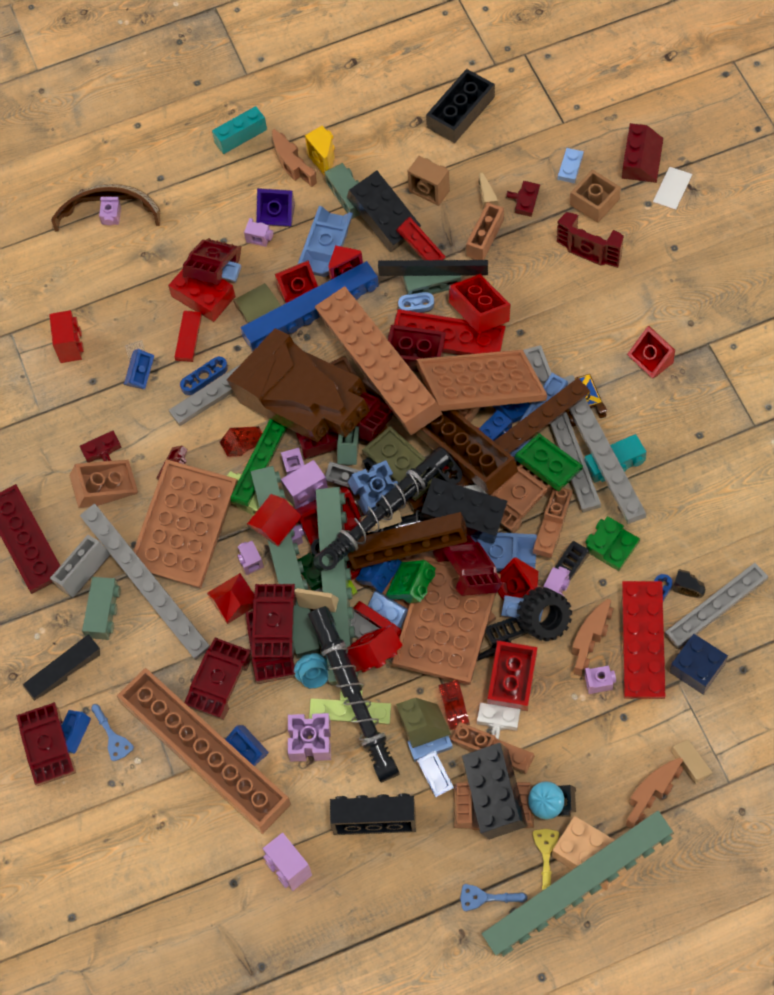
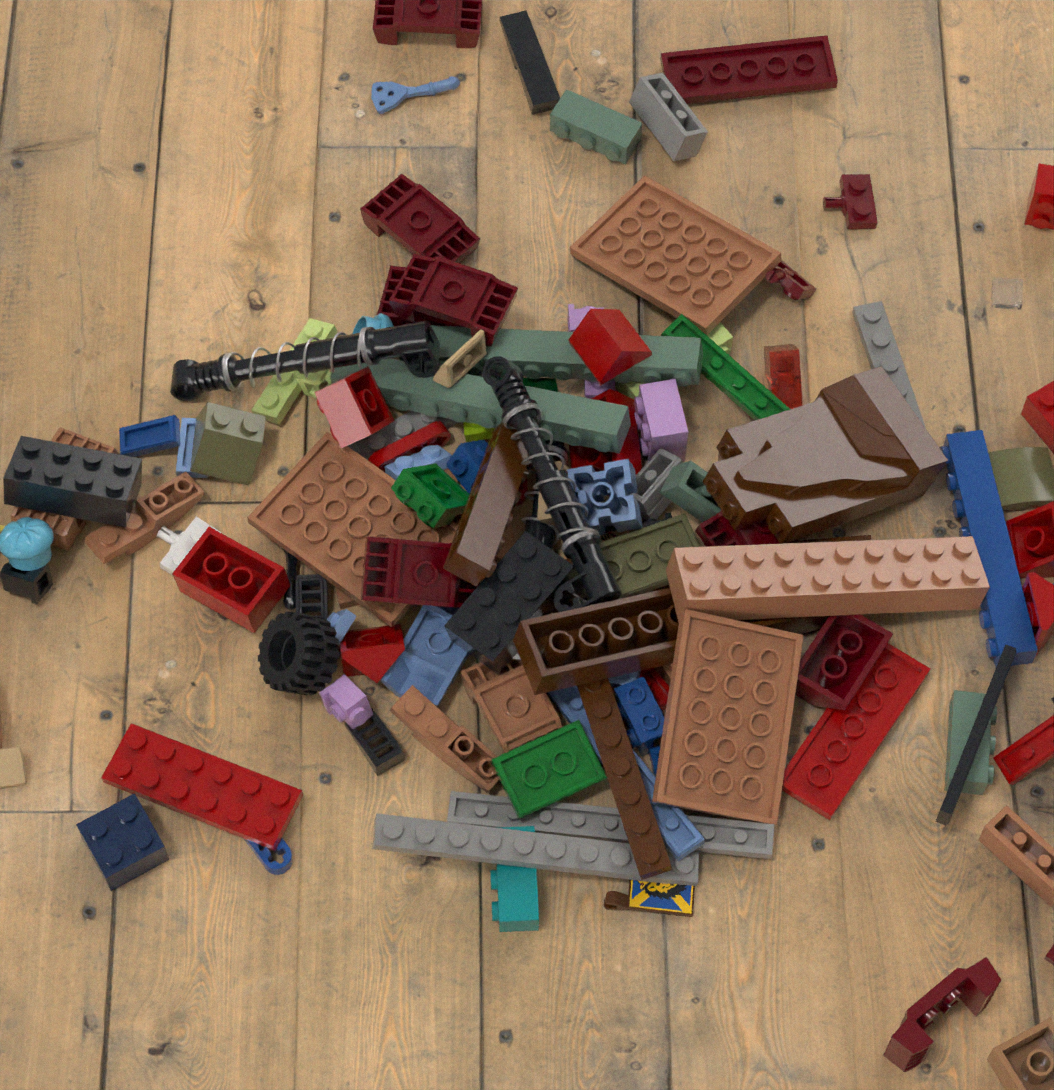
camera: 105 degrees right, 0 degrees up
(74, 728) = (437, 53): blue slope -> none
(102, 482) = (793, 184): nougat slope -> none
(139, 369) = (969, 285): blue slope -> none
(145, 581) = (611, 186): light grey plate -> none
(188, 336) = (1004, 367): red tile -> none
(189, 379) = (922, 379): blue beam -> none
(204, 750) = (324, 177): nougat brick -> none
(232, 598) = (540, 287): red slope -> none
(247, 744) = (313, 238): blue slope -> none
(287, 861) = (120, 218): lavender brick -> none
(292, 460) = (710, 426): lavender brick -> none
(300, 728) = (277, 302): lavender brick -> none
(373, 814) = (127, 335): black brick -> none
(416, 302) = (934, 705): light blue plate -> none
(453, 704) = (234, 496): clear red arch -> none
(479, 303) = (882, 782): red brick -> none
(589, 633) = (248, 717): nougat slope -> none
(597, 685) = (176, 687): lavender brick -> none
(611, 543) = (376, 794): green plate -> none
(652, 353) = (683, 1023): red slope -> none
(688, 584) = (255, 889): black rock -> none
(716, 605) = (202, 917): light grey plate -> none

